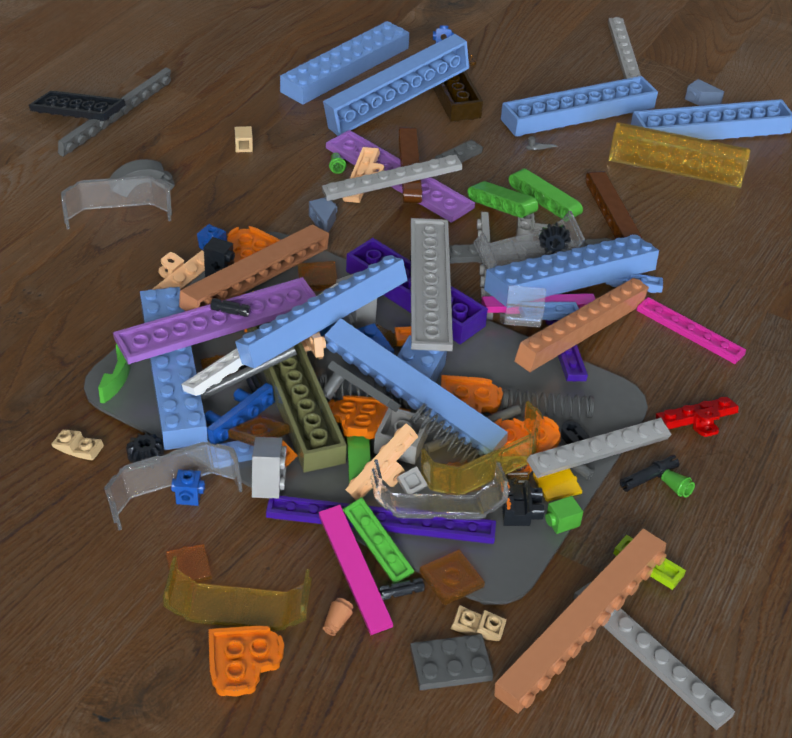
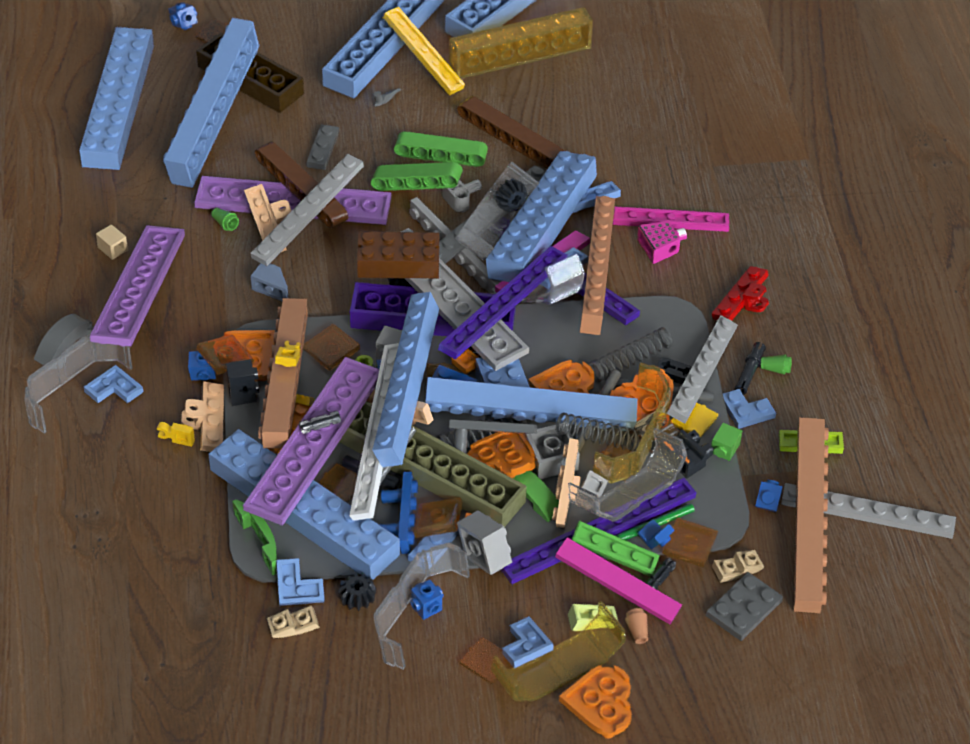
camera: 35 degrees left, 5 degrees up
(102, 420) = (294, 590): none -> medium blue plate
(144, 220) = (113, 381): none -> medium blue plate
(148, 274) = (179, 433): none -> yellow plate
(219, 167) = (137, 286): none -> medium lavender plate
(230, 574) = (530, 643): none -> medium blue plate
(232, 233) = (223, 351): none -> clear orange tile
(263, 255) = (288, 355): none -> yellow plate
(320, 592) = (581, 615): none -> yellowish green slope
(414, 229) = (398, 255): none -> reddish brown piece
(423, 550) = (654, 535): none -> blue bracket
(437, 543) = (660, 521): none -> green bar
(447, 303) = (500, 304): none -> dark purple plate
(564, 582) = (769, 495): none -> blue bracket
(594, 126) = (424, 51): none -> yellow plate
(612, 507) = (747, 413): none -> medium blue plate
(664, 338) = (660, 240): none -> dark pink torso

